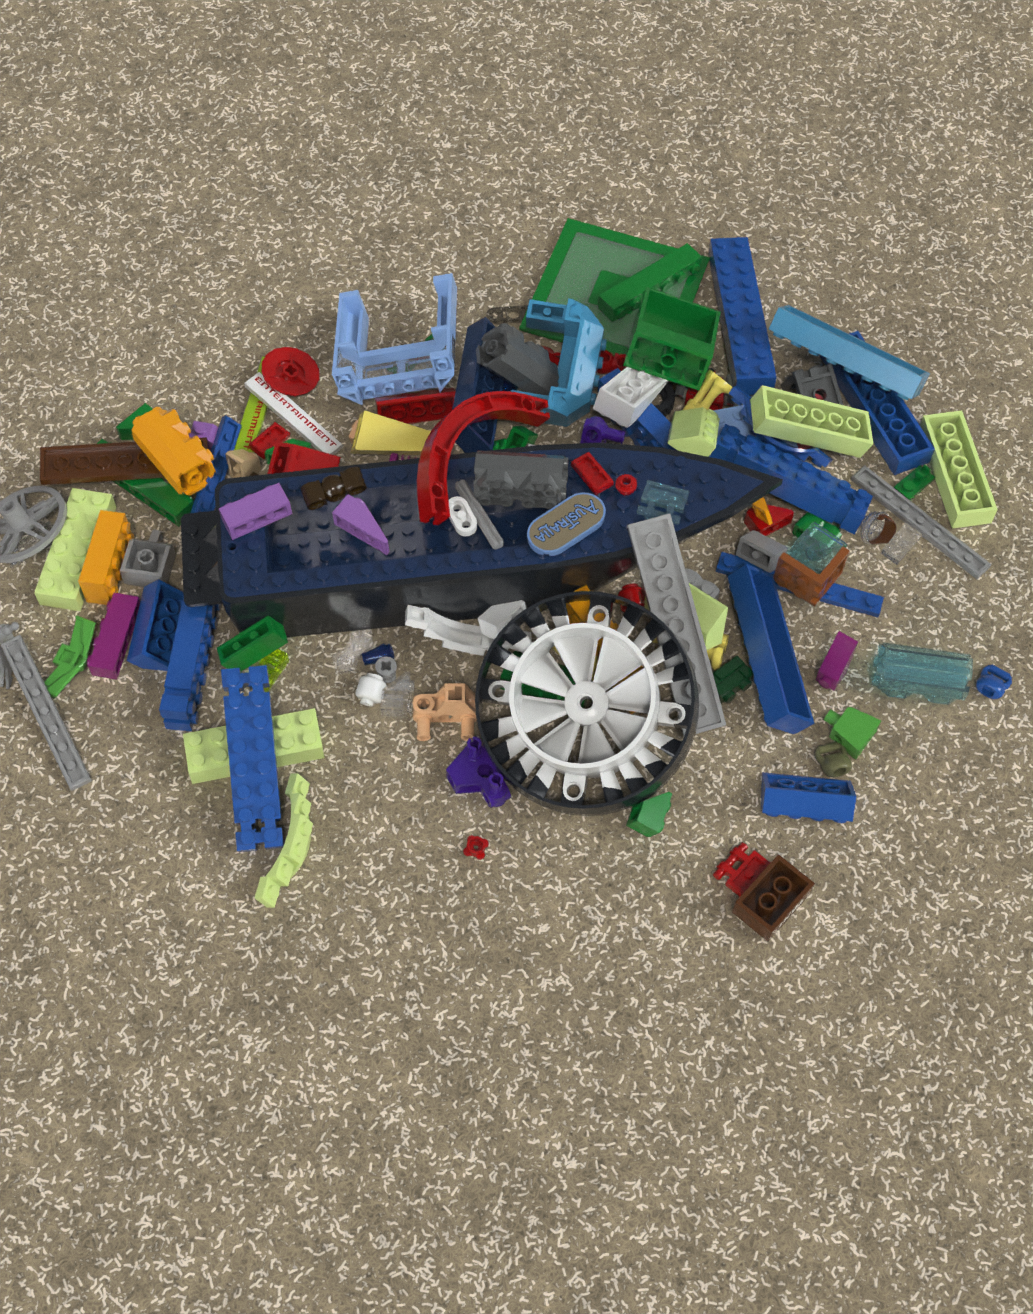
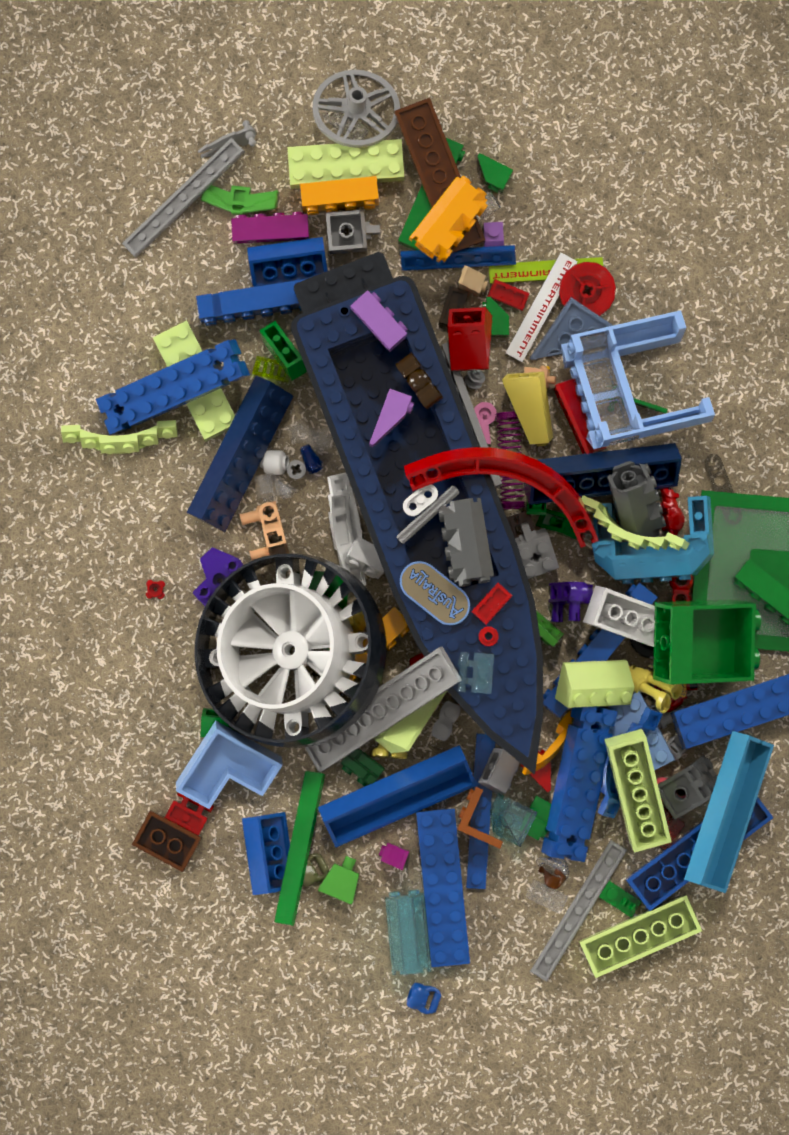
camera: 80 degrees right, 25 degrees up
(321, 395) = (571, 320): none -> sand blue tile
(351, 715) = (240, 453): none -> dark blue brick
(559, 359) = (635, 541): none -> yellowish green piece
(691, 813) = (225, 756): none -> light blue piece
(809, 759) = (299, 848): none -> green tile
(818, 622) = (443, 887): none -> blue brick

